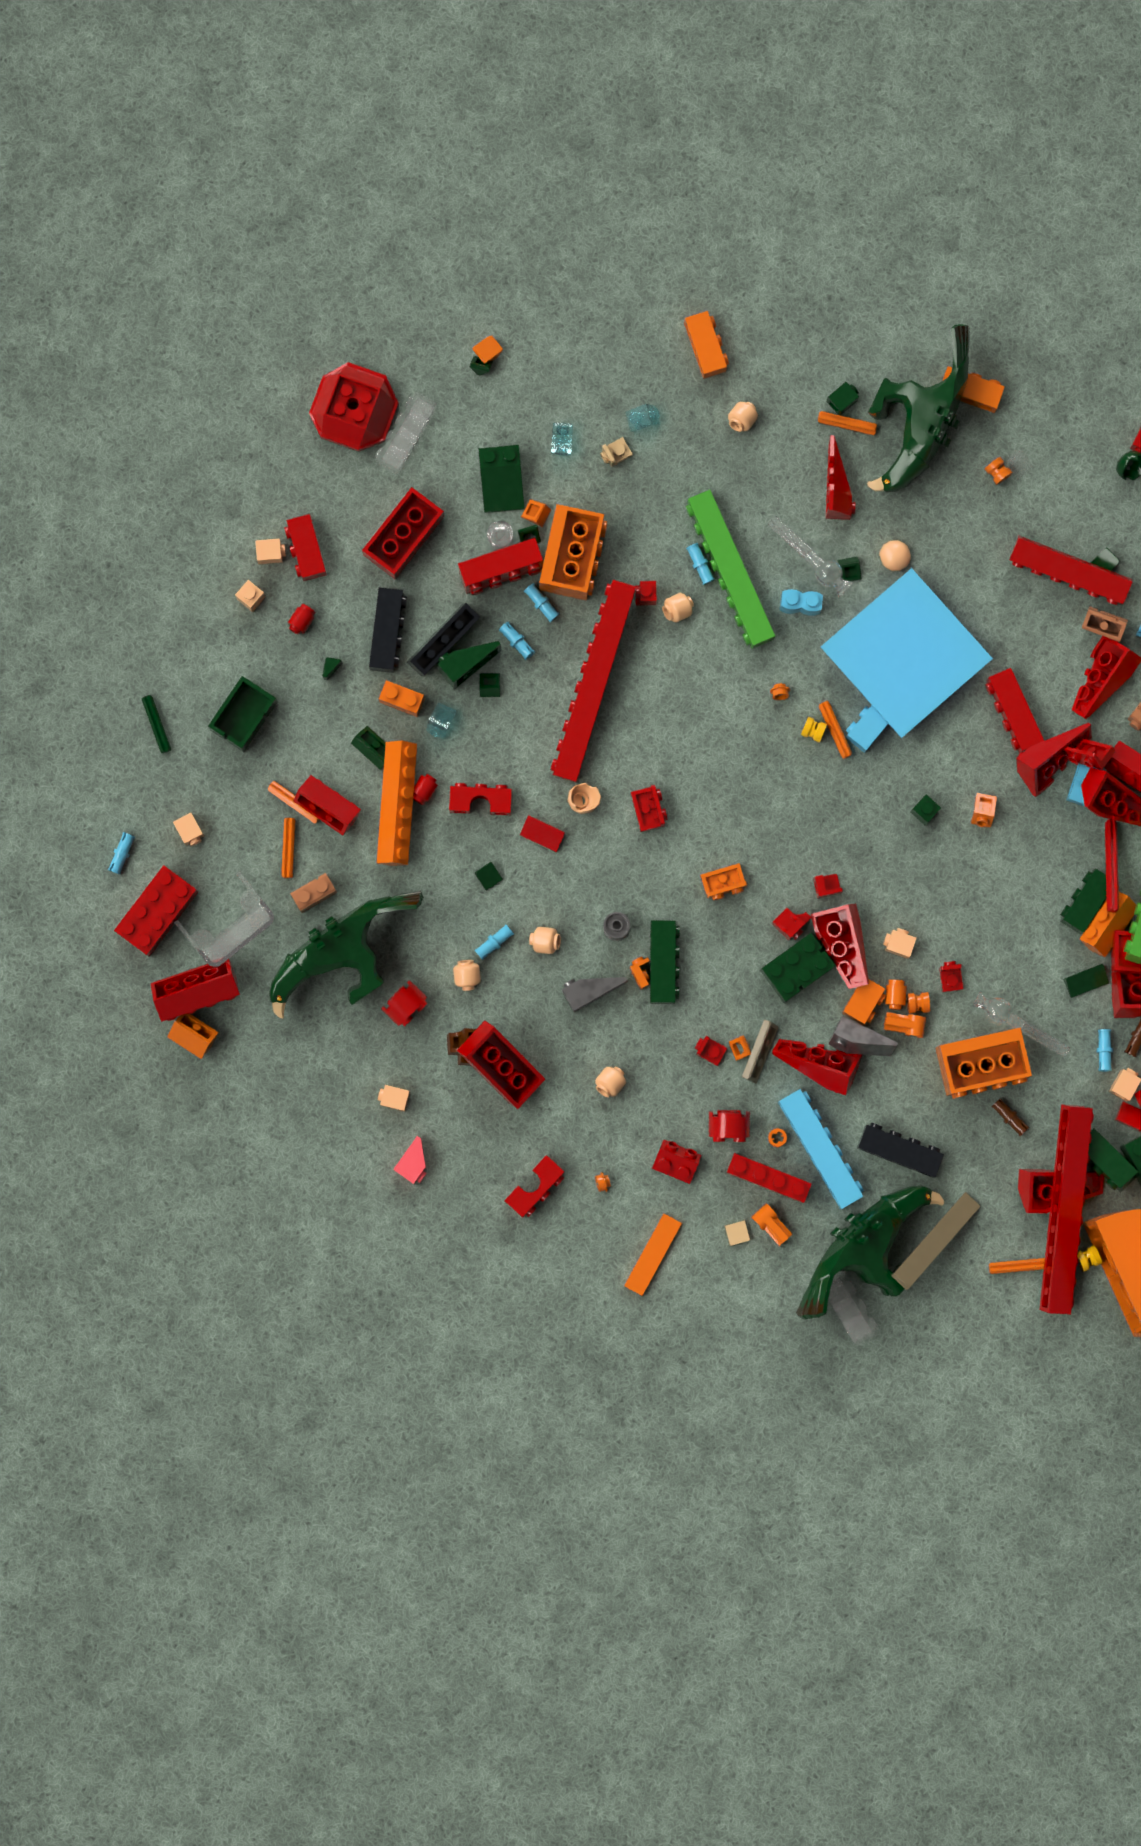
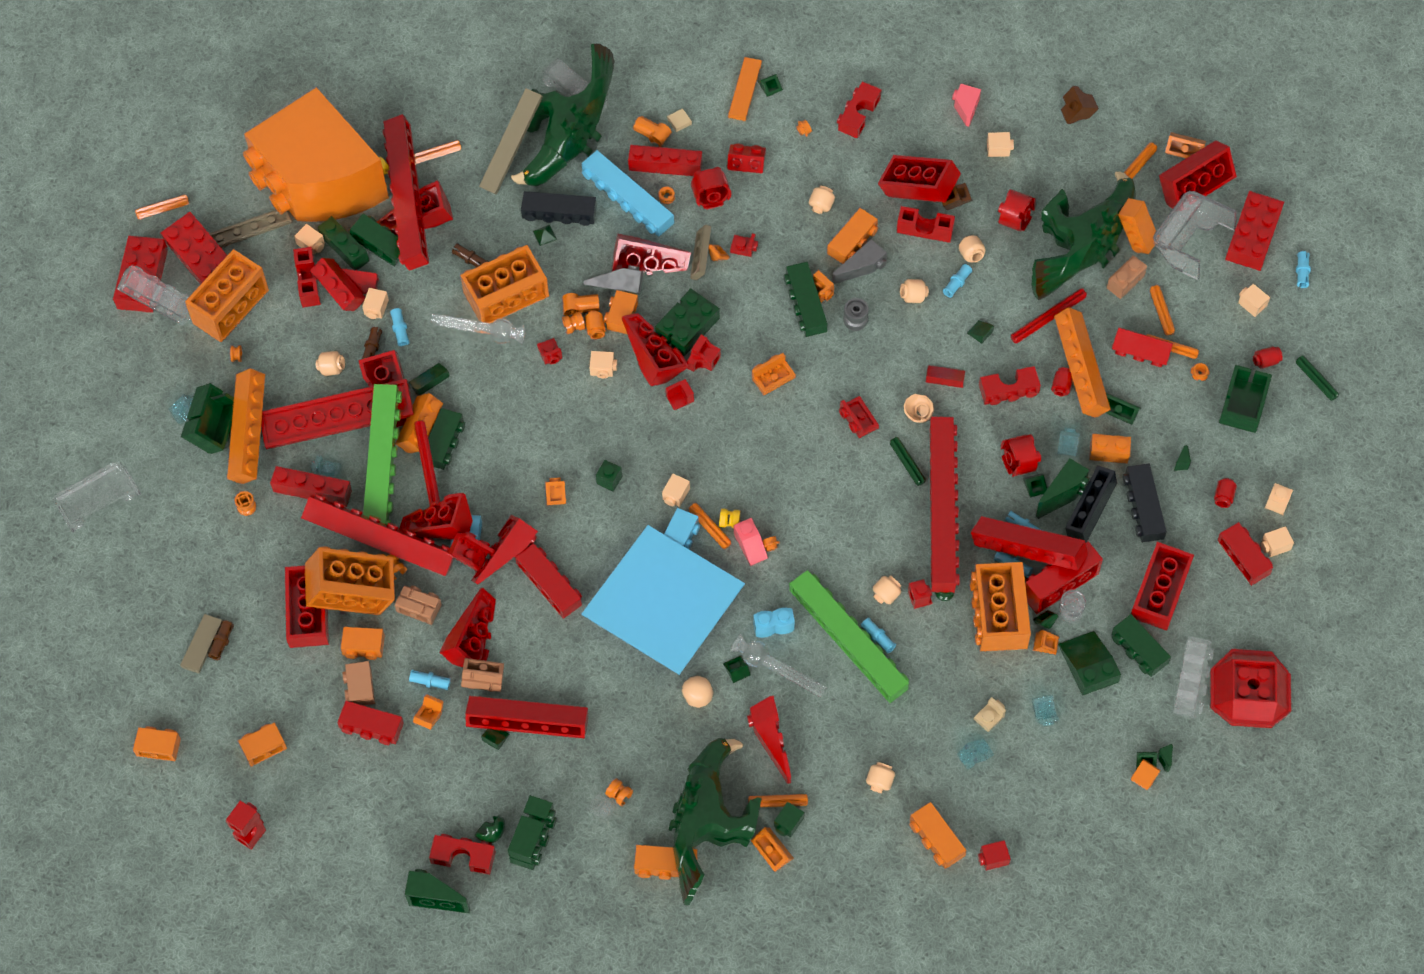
camera: 170 degrees right, 20 degrees down
(199, 759) = (1267, 357): none -> red brick
(248, 1035) = (1140, 161): none -> orange axle
(270, 764) = (1200, 367): none -> orange plate
(285, 938) = (1138, 225): none -> orange brick
(290, 1122) = (1078, 105): none -> reddish brown brick
(410, 874) = (1047, 316): none -> red axle
(446, 479) = (1140, 646): none -> dark green brick
(460, 363) = (1165, 757): none -> dark green slope
(498, 713) = (1020, 455): none -> red brick
(508, 1016) = (915, 225): none -> red arch
(524, 603) = (1029, 543): none -> red brick
(590, 1025) = (853, 236): none -> orange brick
(612, 746) = (907, 461): none -> dark green axle
(622, 1252) = (770, 85): none -> dark green slope
(658, 311) = (994, 855): none -> red brick
(800, 698) = (750, 541): none -> coral slope
(861, 774) = (675, 490): none -> light nougat brick
(864, 378) = (771, 848): none -> orange slope
(922, 1125) = (544, 235): none -> dark green slope
(1093, 445) = (532, 833): none -> dark green piece

